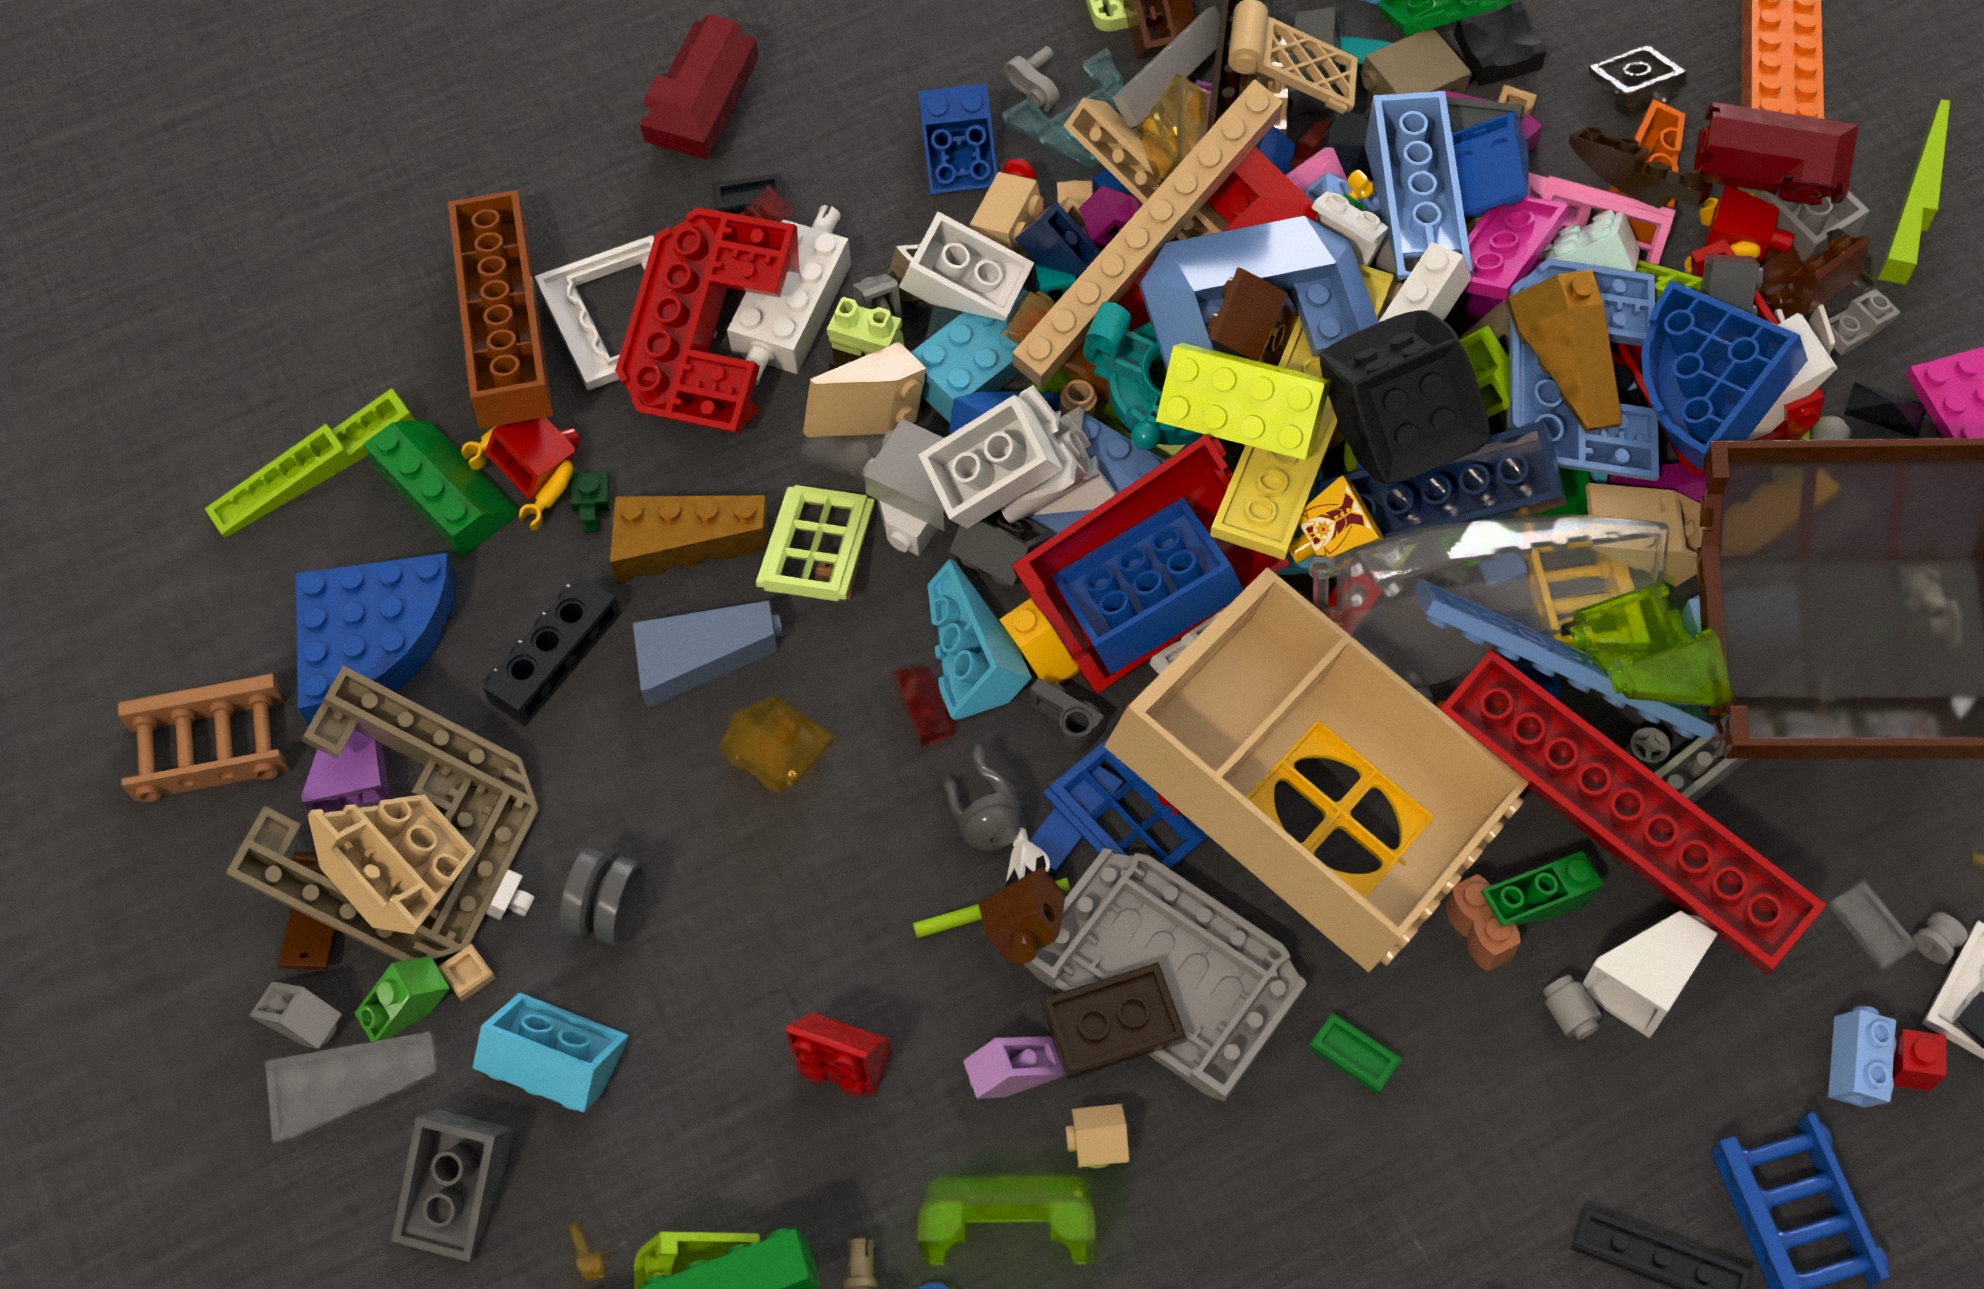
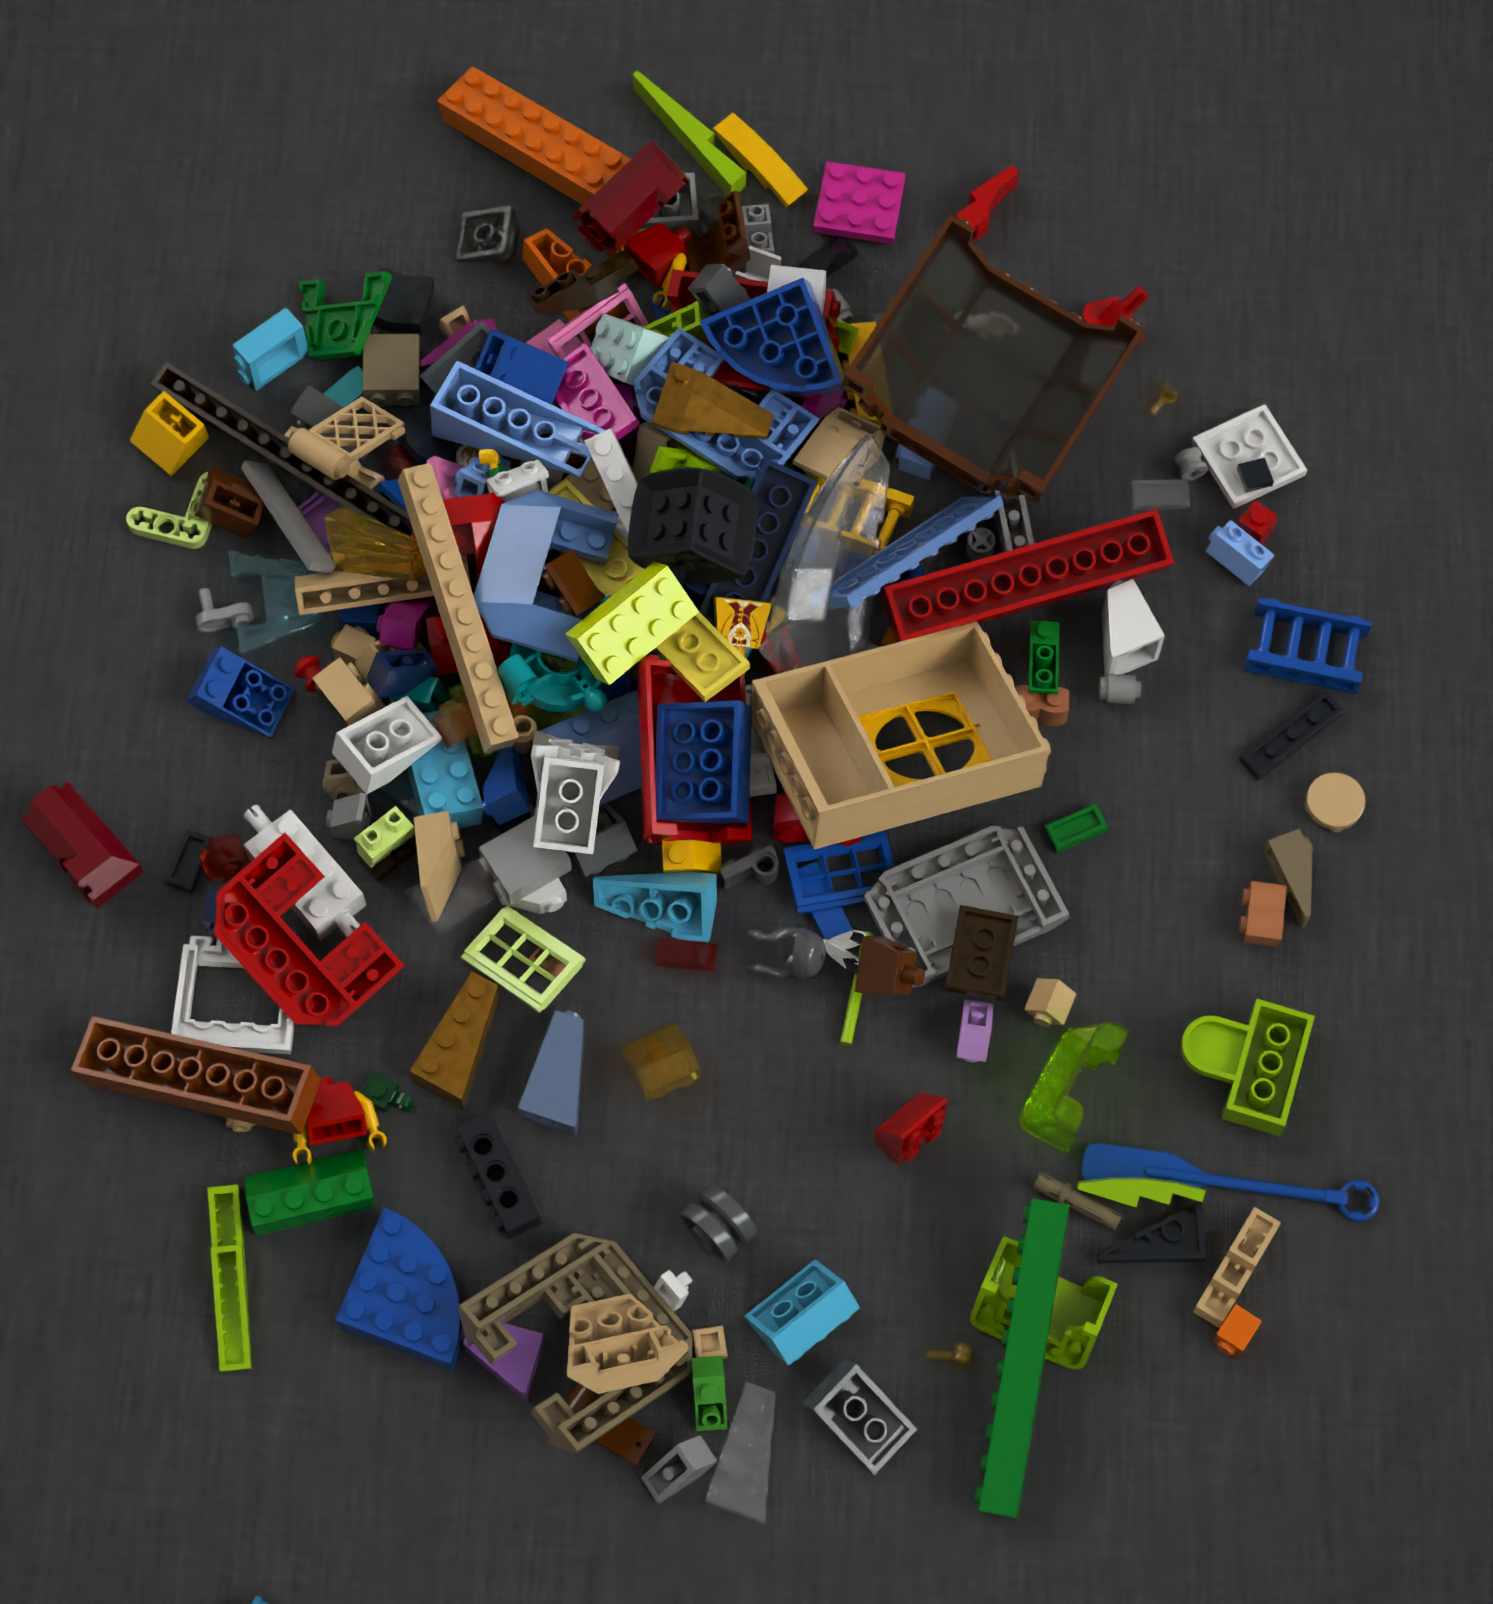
camera: 65 degrees left, 5 degrees up
(194, 704) = (393, 1452): medium nougat fence -> none
(1649, 652) = (938, 500): clear neon green windscreen -> none
(1947, 275) = (760, 159): none -> yellow slope

